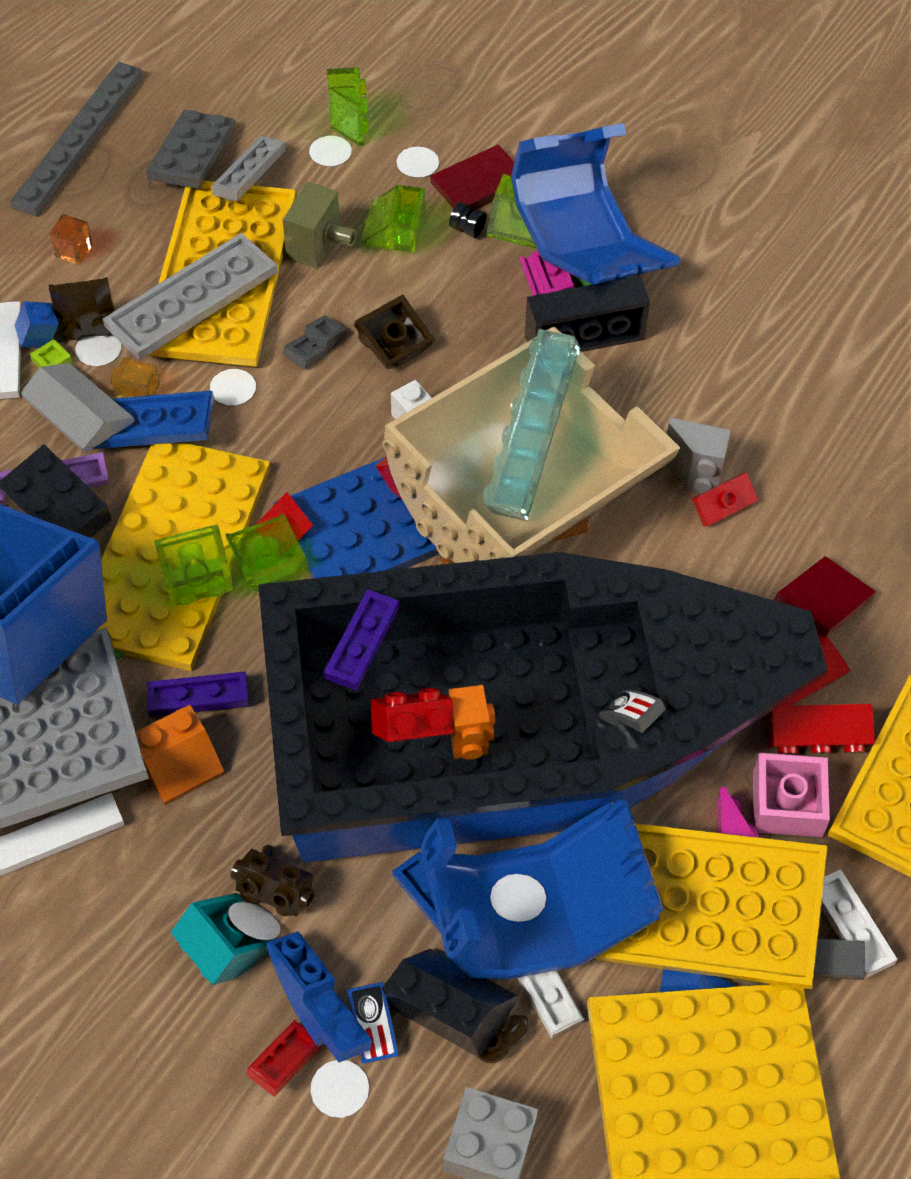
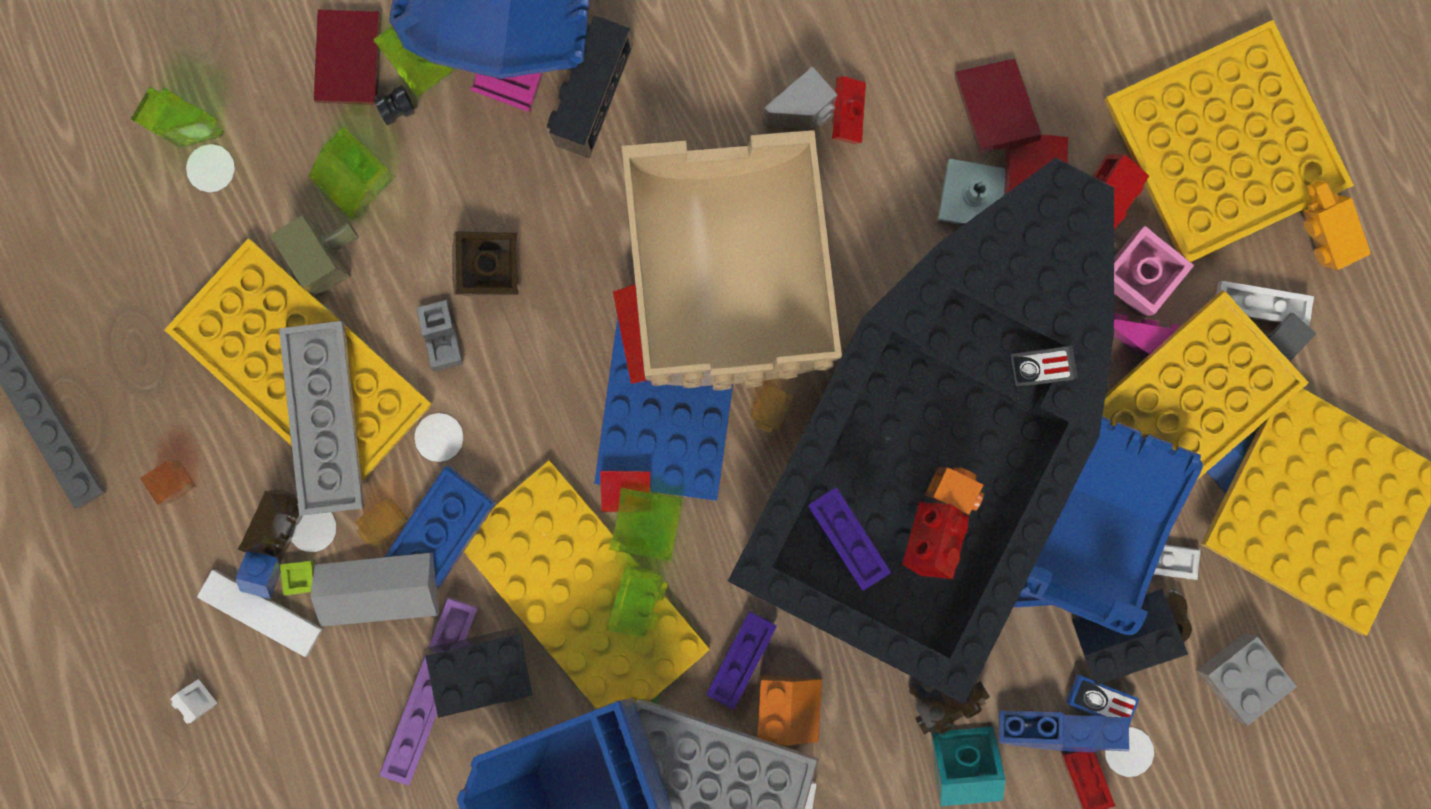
camera: 55 degrees left, 30 degrees up
(191, 149) = (124, 301): dark grey plate -> none
(248, 168) = (194, 266): light grey plate -> none
(254, 921) = (970, 738): white sticker -> none
(407, 398) = (576, 303): white brick -> none
(417, 162) = (281, 96): white sticker -> none
(518, 897) = (1080, 531): white sticker -> none
(532, 425) = (702, 234): clear light blue brick -> none

